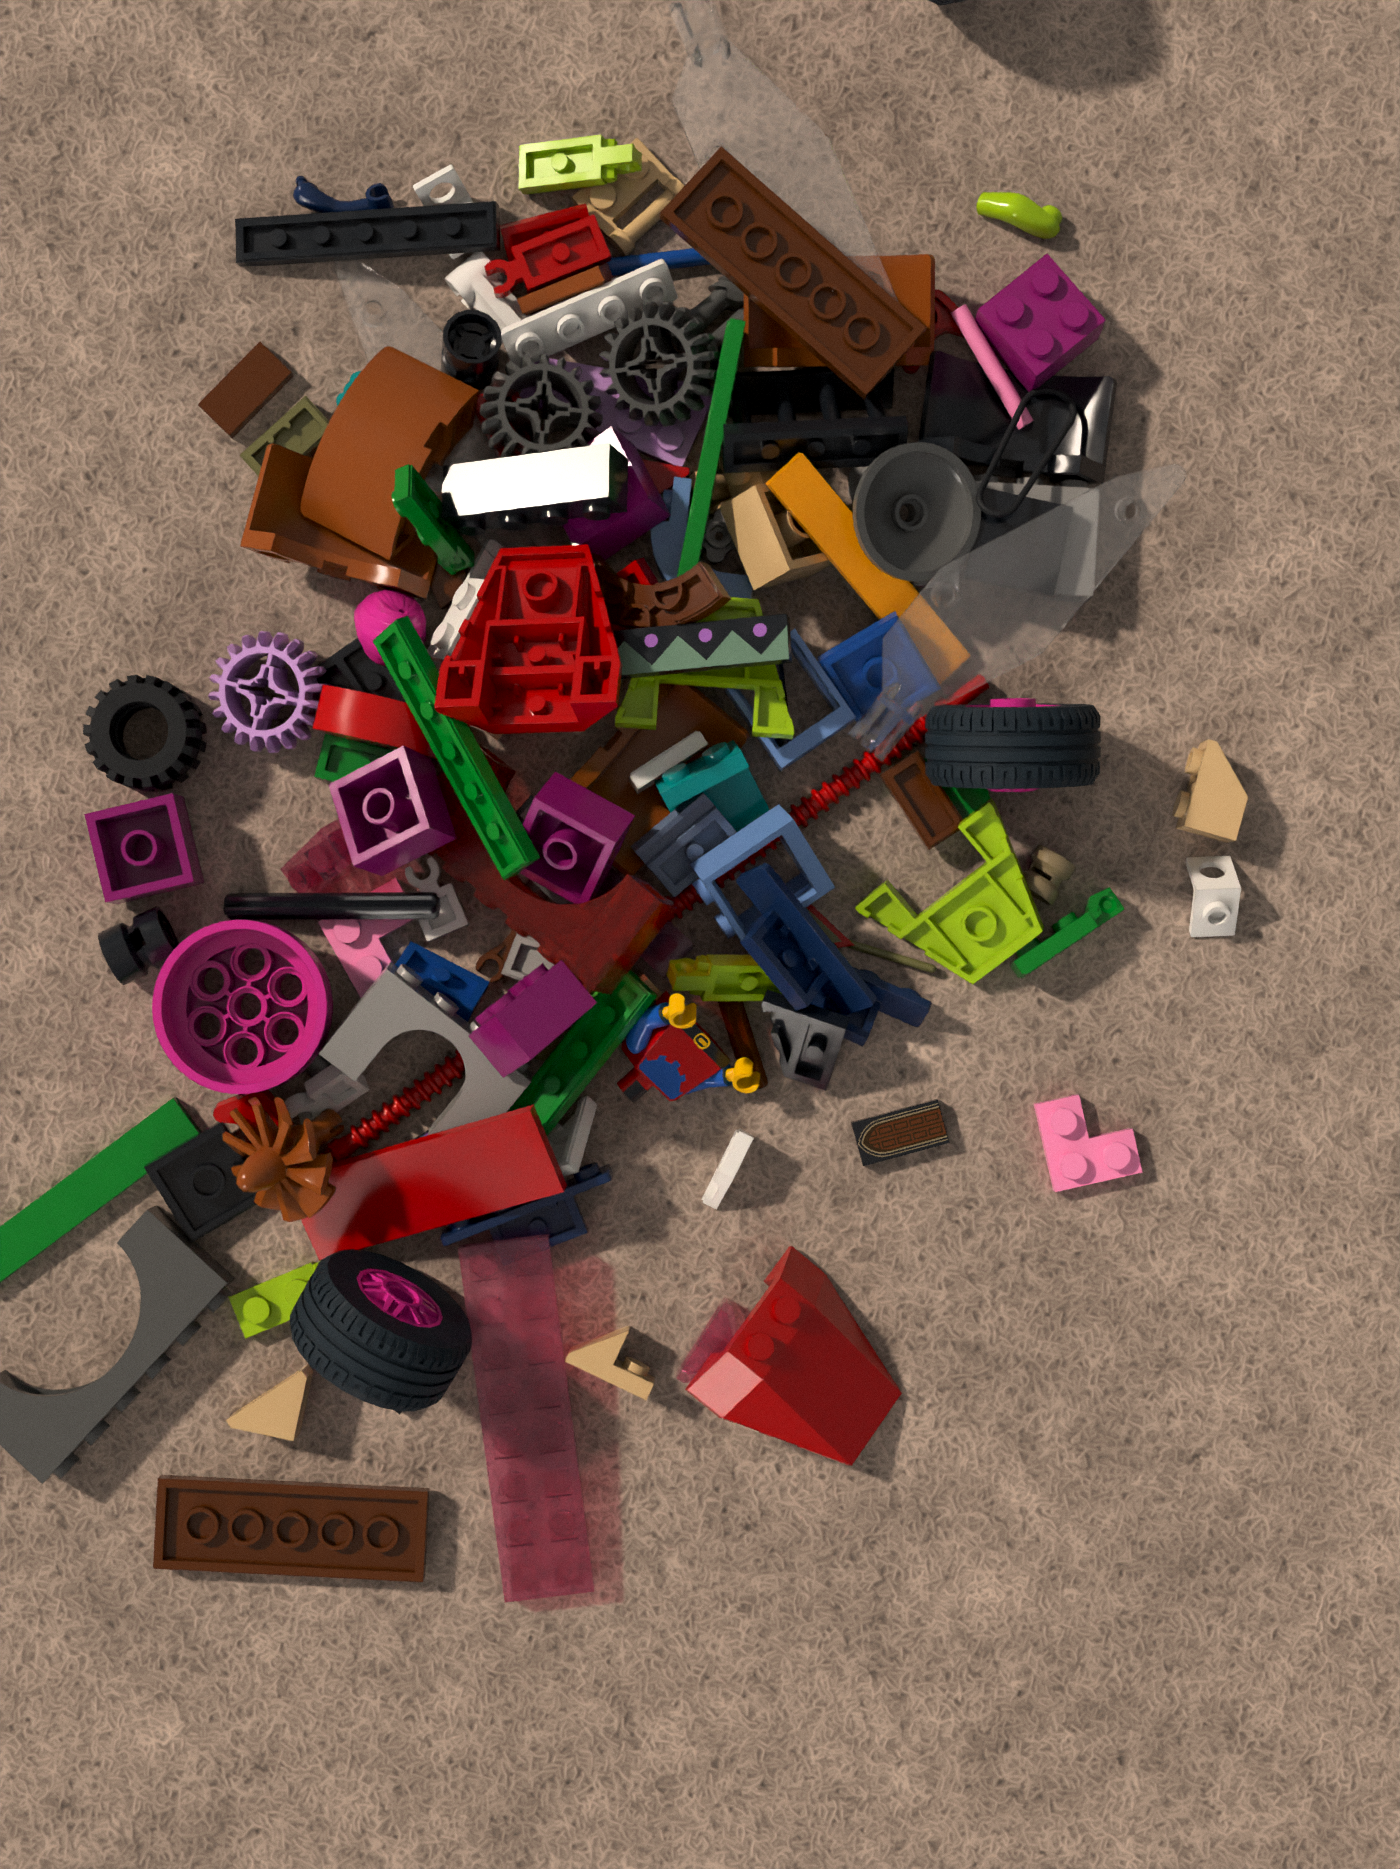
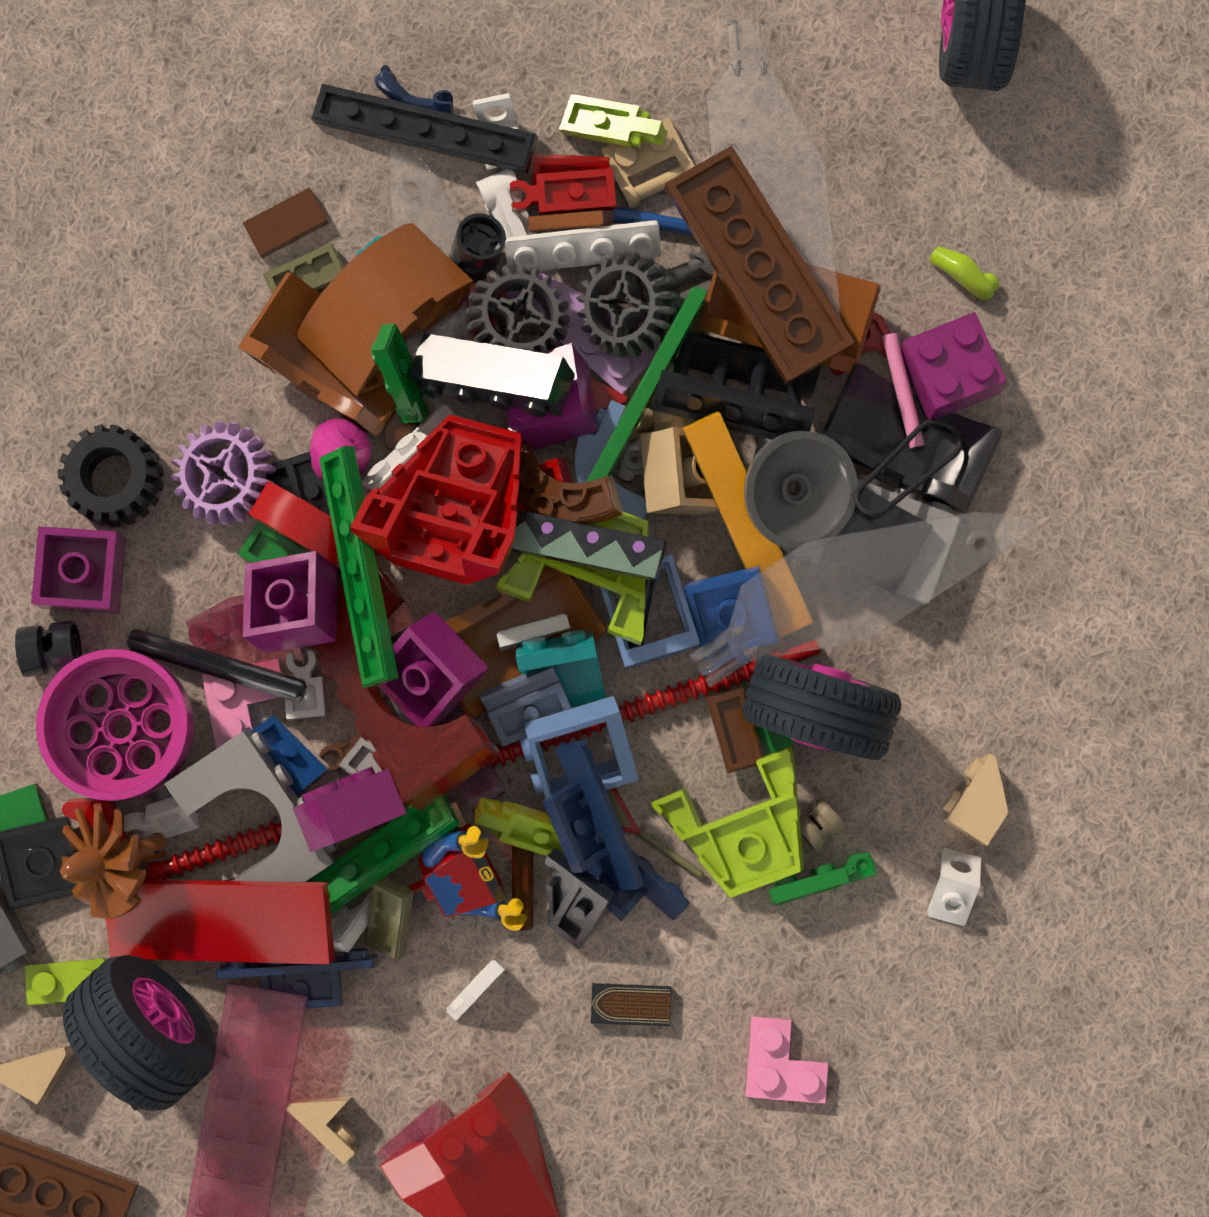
camera: 25 degrees right, 5 degrees down
(610, 1121) = (389, 918): none -> olive plate

